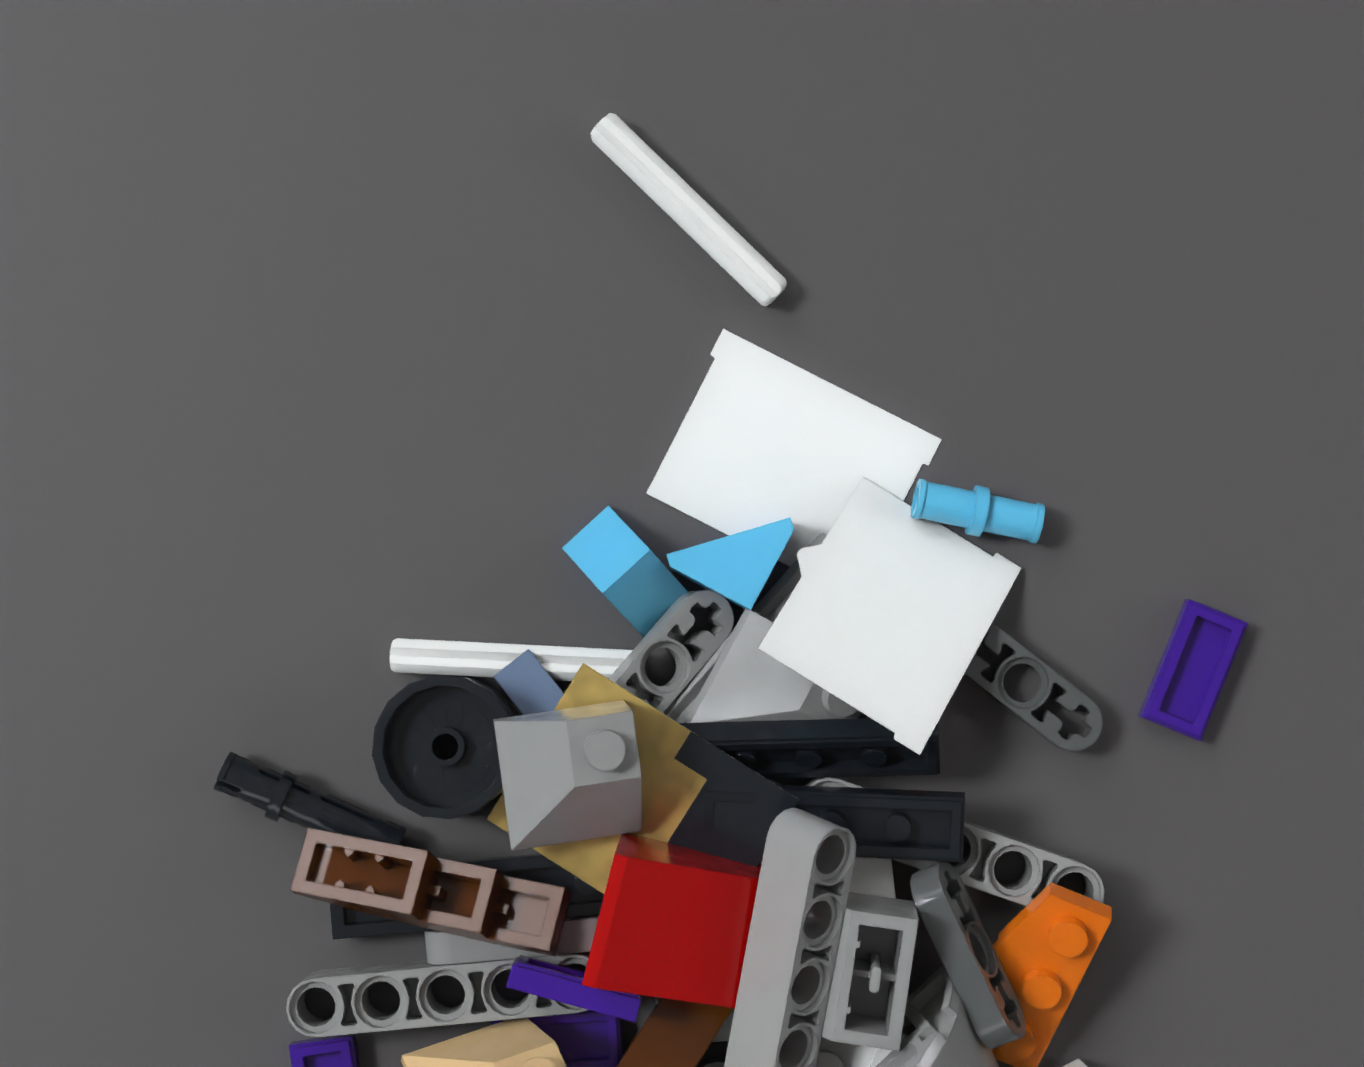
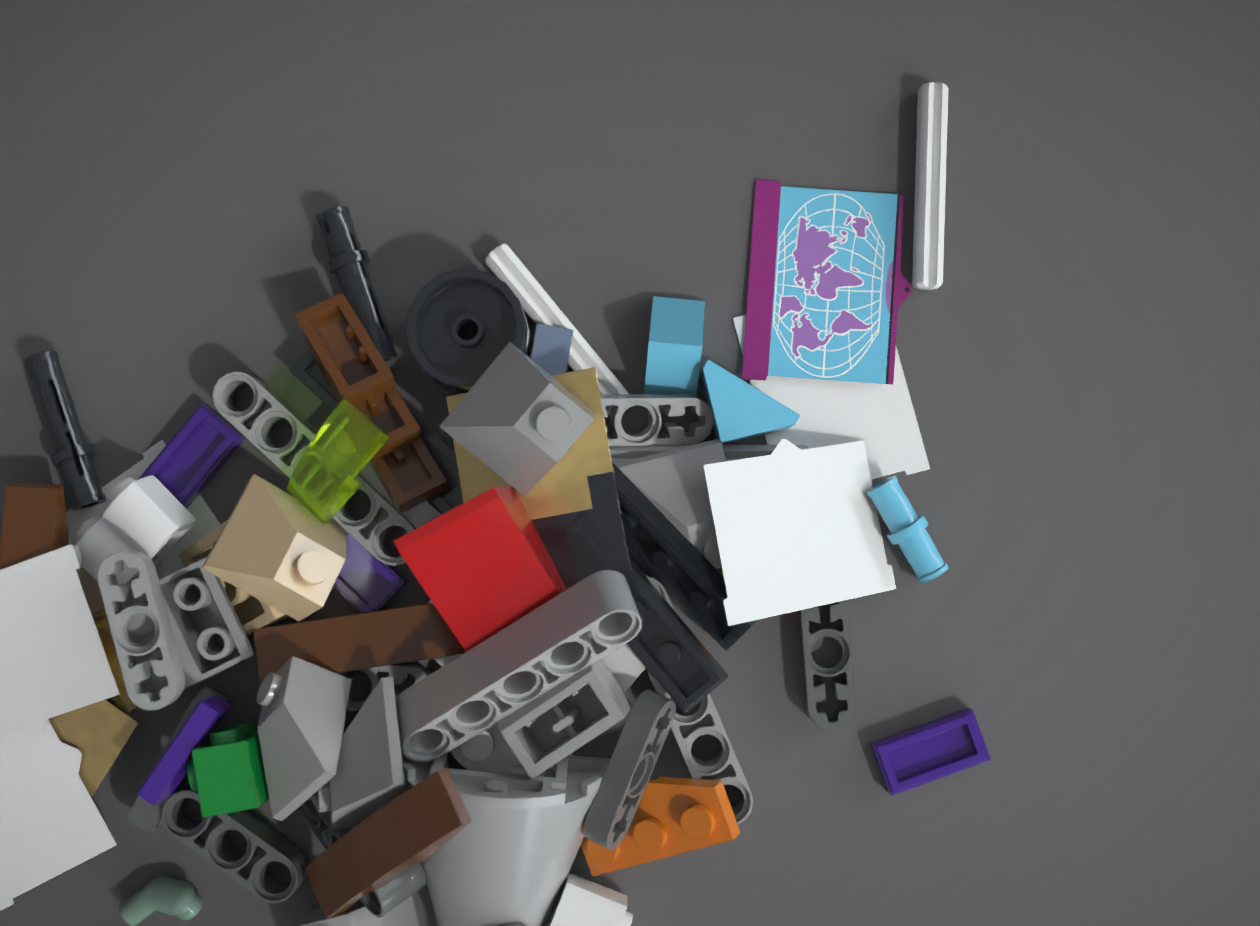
camera: 50 degrees right, 0 degrees up
(456, 971) = (333, 459): none -> clear neon green slope
(566, 986) = (383, 532): dark purple tile -> none
(690, 384) = (824, 284): none -> sticker

